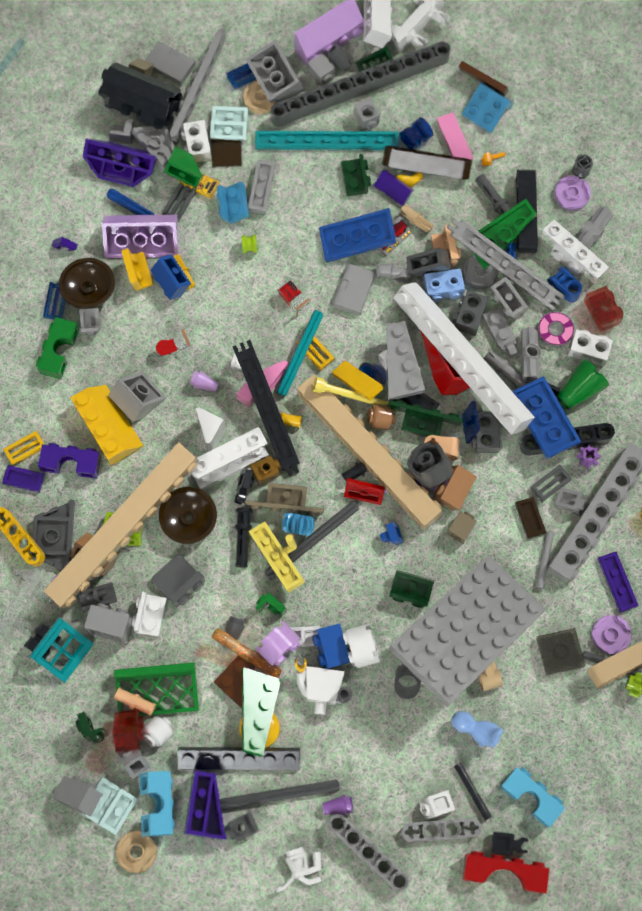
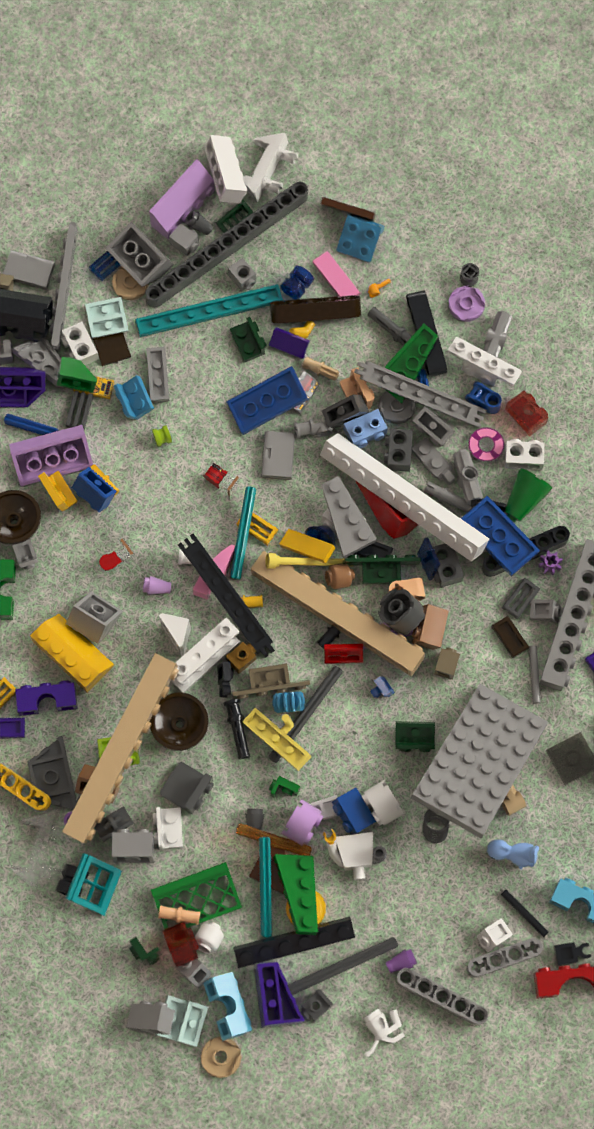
camera: 15 degrees left, 0 degrees up
(225, 697) = (265, 886): none -> teal axle

